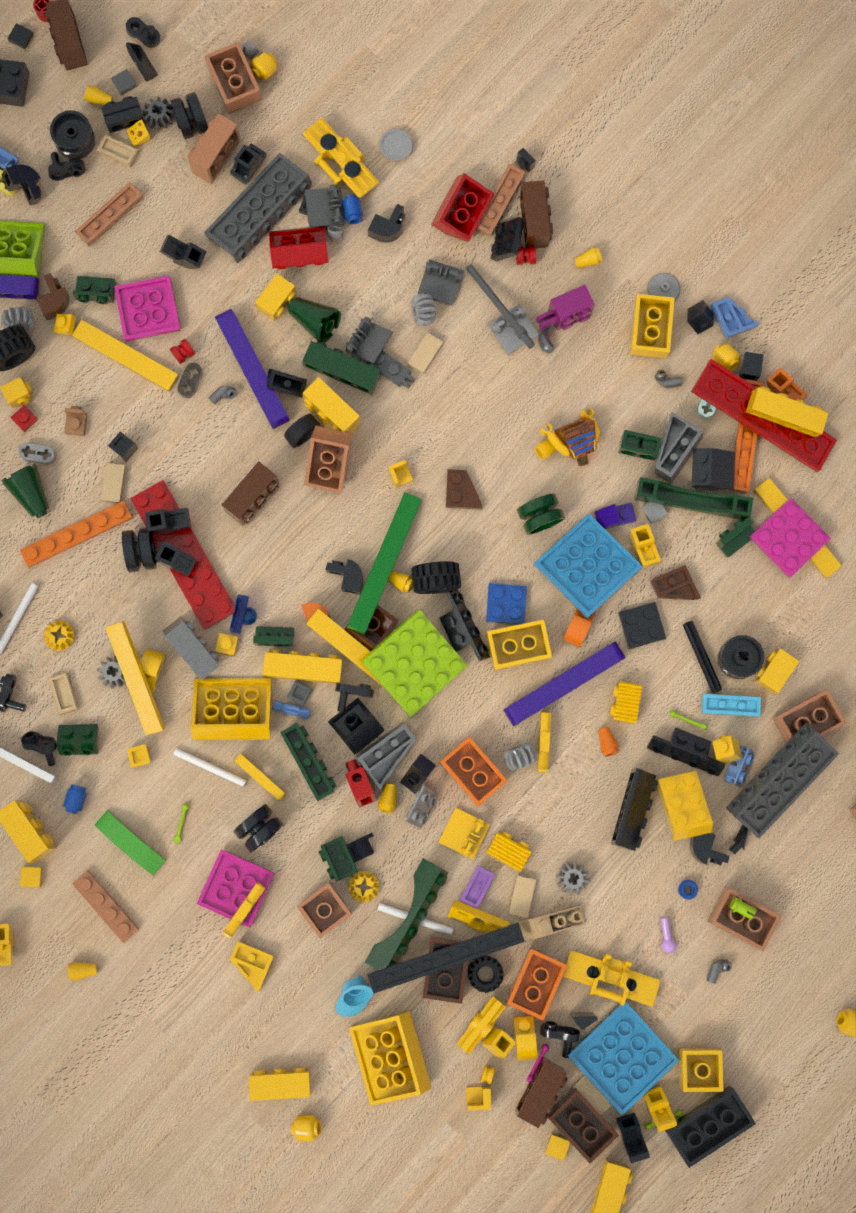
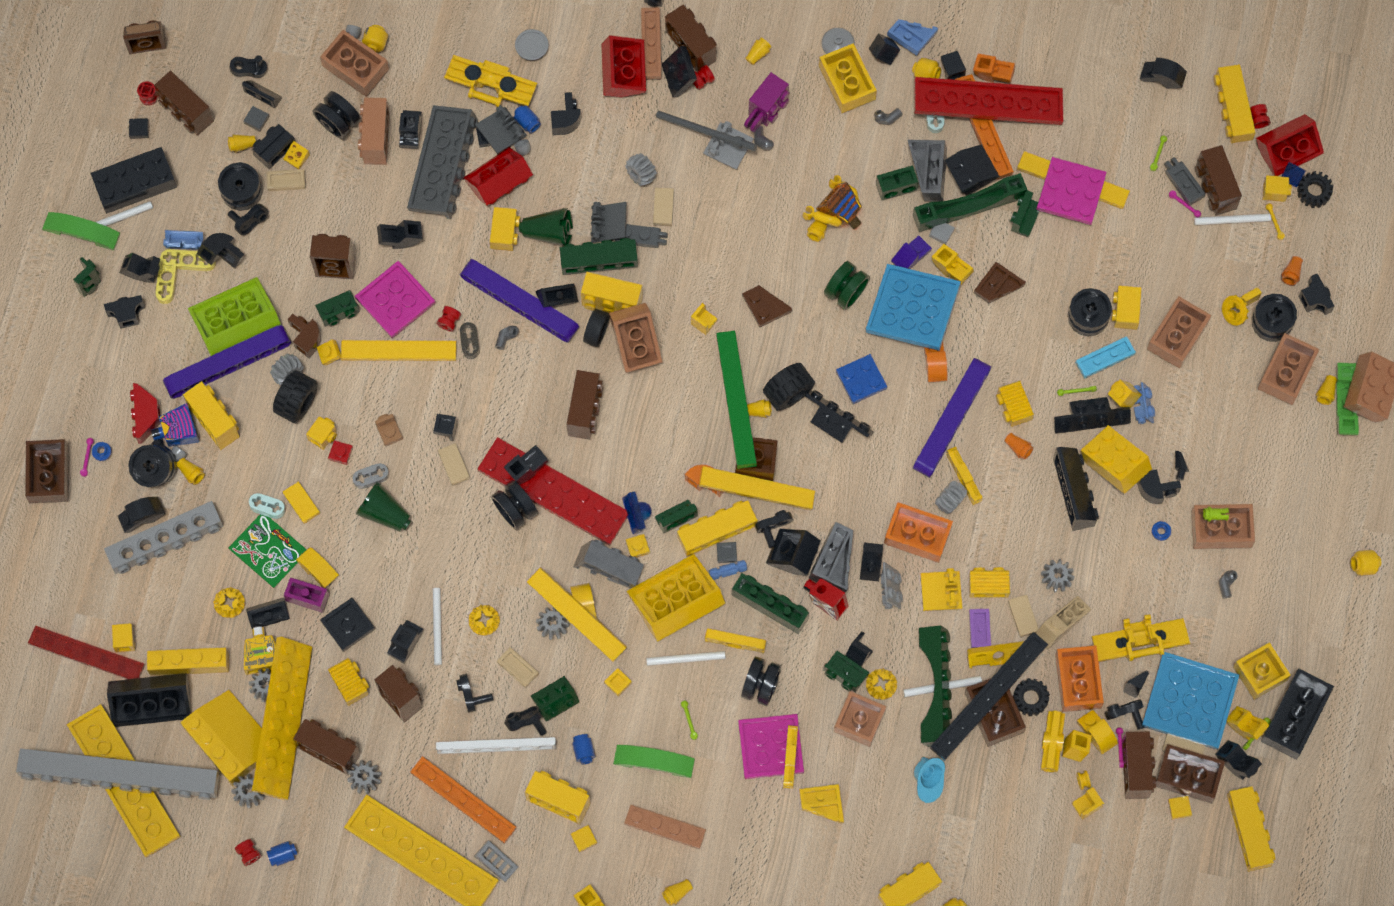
camera: 25 degrees left, 10 degrees down
(76, 534) = (447, 525): orange plate -> none
(109, 213) = (315, 225): nougat plate -> none
(110, 241) = (332, 256): none -> reddish brown brick
(151, 110) = (304, 122): dark grey gear -> none
(175, 559) = (548, 494): black brick -> none
(352, 575) = (712, 426): black brick -> none
(388, 799) = (859, 599): yellow cone -> none
(390, 1058) = (991, 813): yellow slope -> none
(414, 663) = (812, 469): lime plate -> none
(441, 281) = (641, 138): dark grey hinge -> none
(519, 645) = (893, 405): yellow brick -> none
(642, 625) = (989, 333): black plate -> none
(668, 944) = (1172, 586): lavender bar -> none
(702, 657) = (1056, 331): black axle -> none
(782, 780) = (1186, 392): dark grey bracket -> none
(787, 412) = (1006, 86): yellow brick -> none

